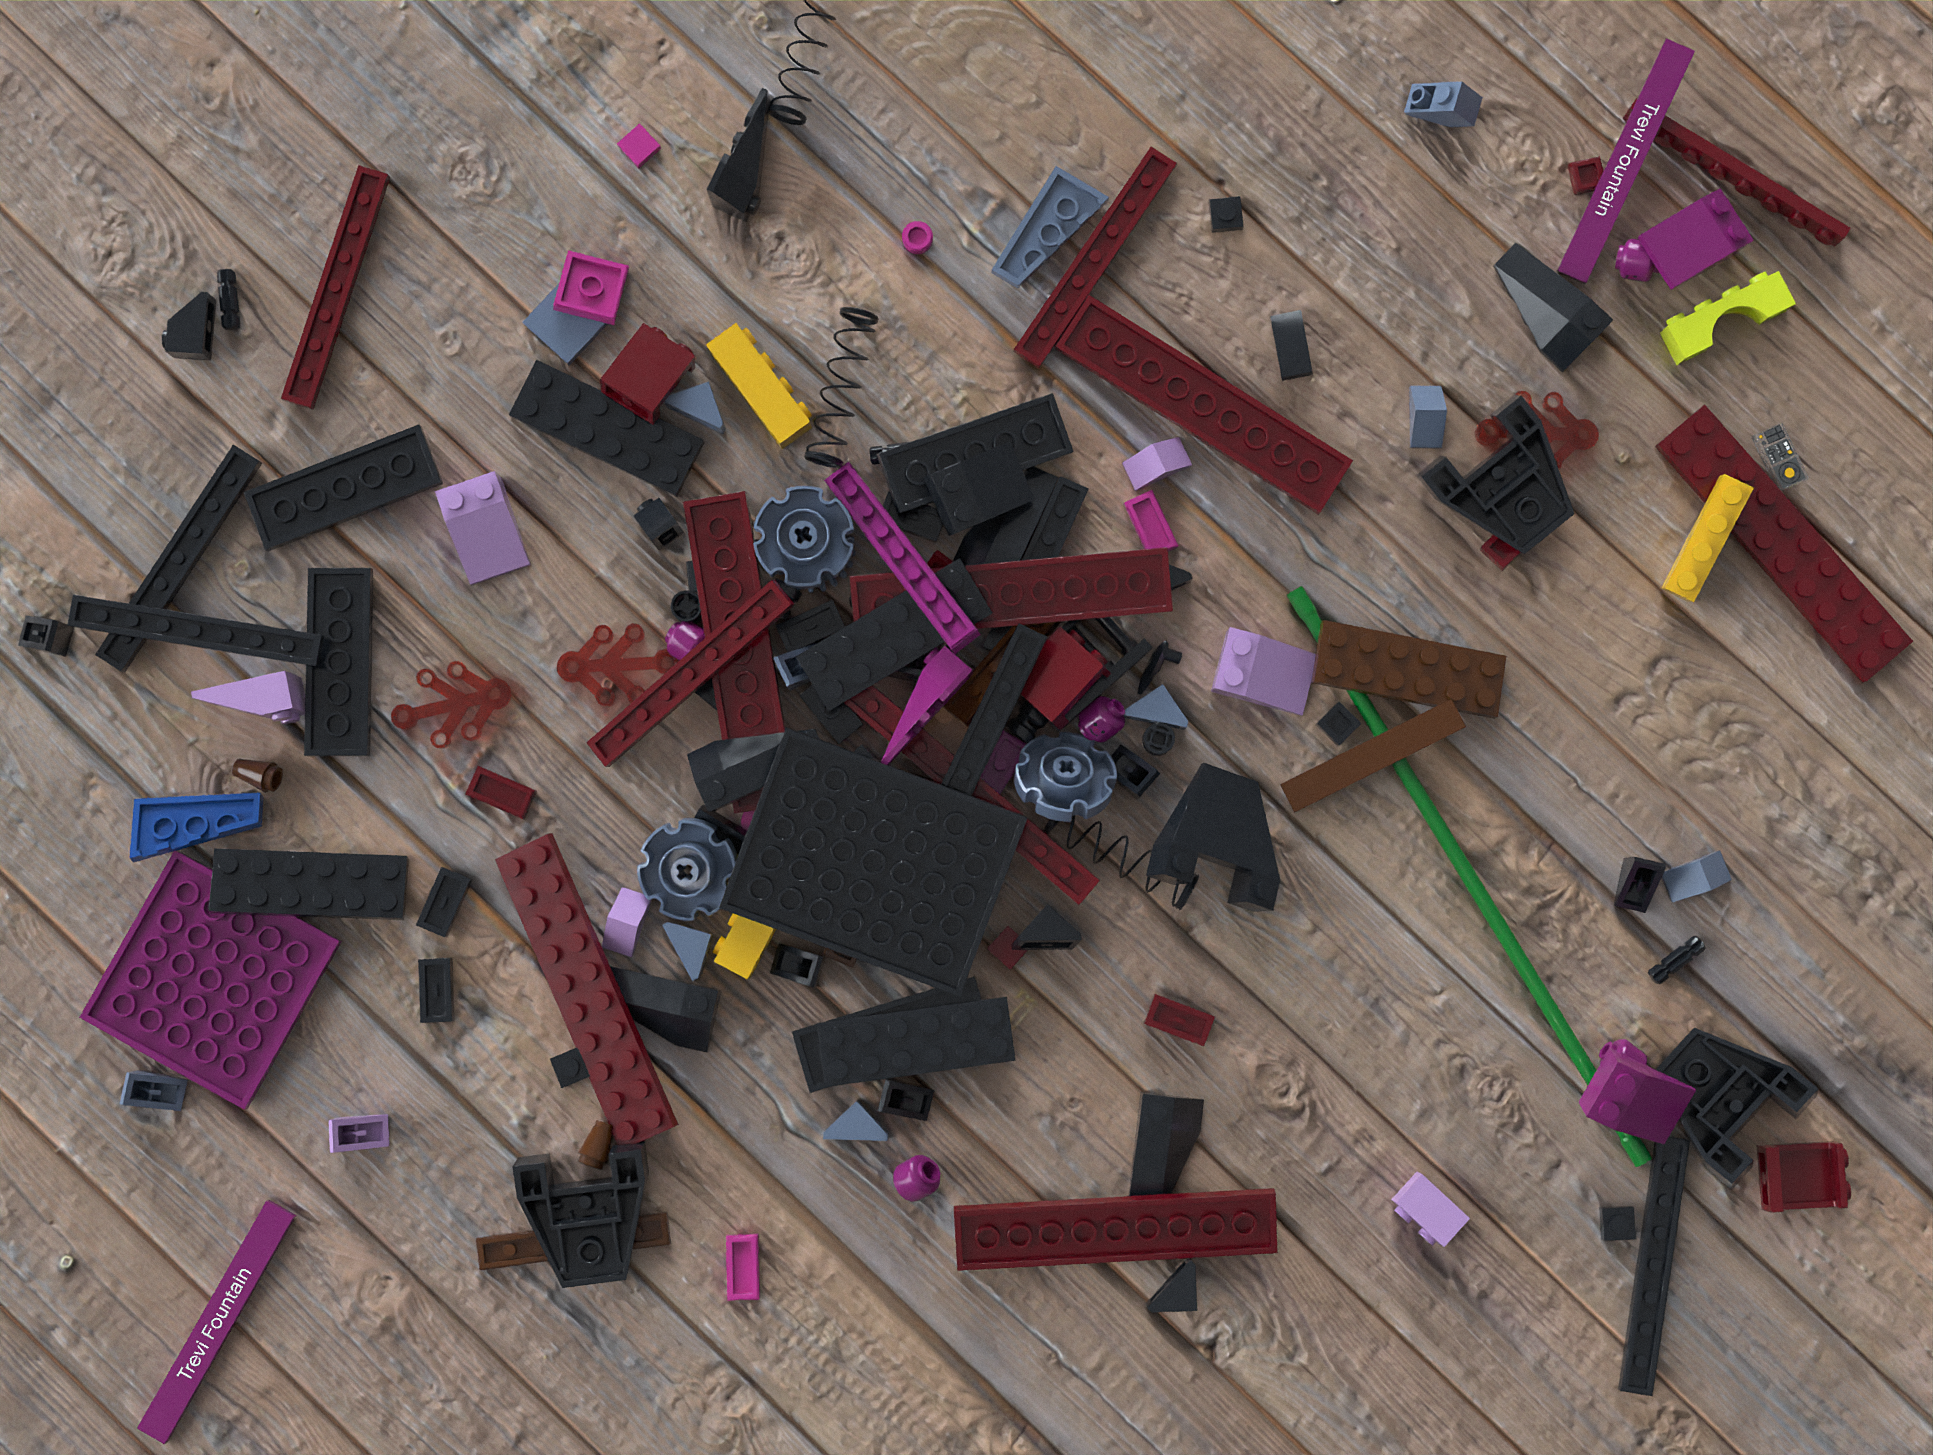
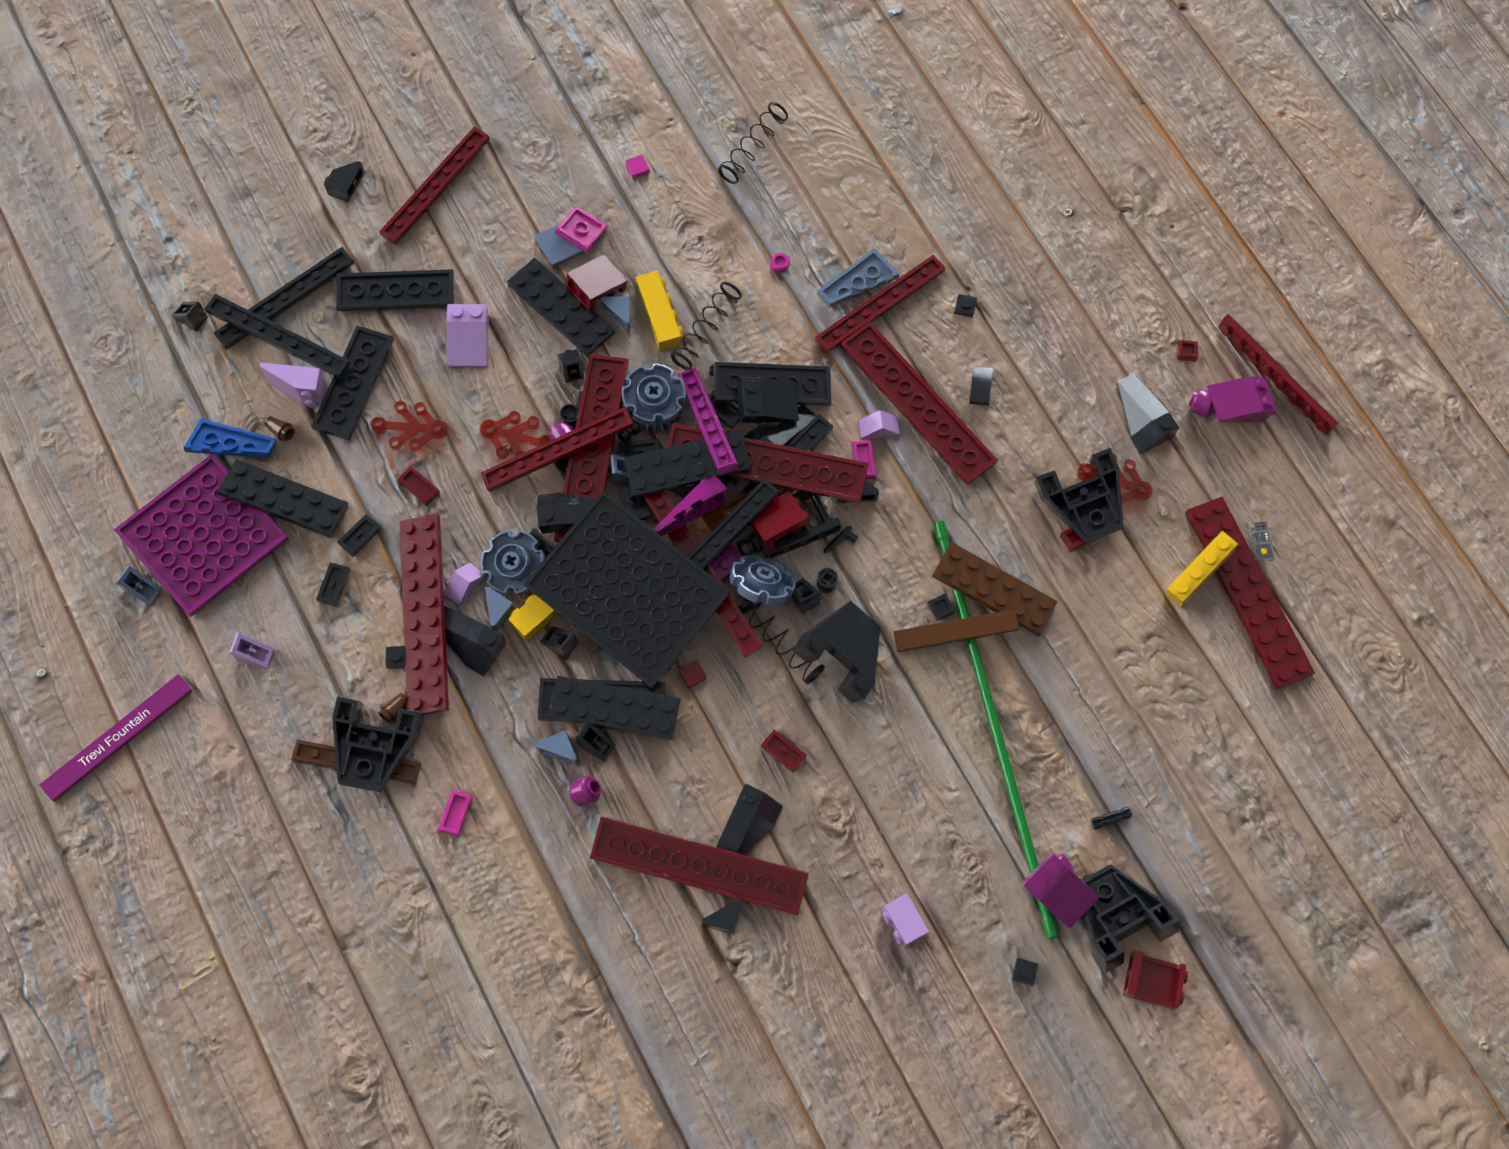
camera: 10 degrees right, 15 degrees down
(228, 299) = (371, 173): black axle -> none
(738, 175) = (688, 194): black wedge -> none
(1047, 932) = (719, 670): black slope -> none
(1102, 719) = (796, 557): magenta head -> none
(1157, 708) = (831, 559): sand blue slope -> none
(1264, 671) = (904, 562): lavender slope -> none
(1427, 416) = (1050, 452): sand blue slope -> none
(1444, 103) = (1113, 284): sand blue slope -> none
(1625, 161) = (1211, 346): magenta tile -> none
(1638, 883) = (1100, 760): black slope -> none
(1653, 1266) = (1040, 1008): black tile -> none
(1696, 876) = (1138, 770): sand blue slope -> none
(1759, 301) = (1273, 448): neon yellow arch -> none

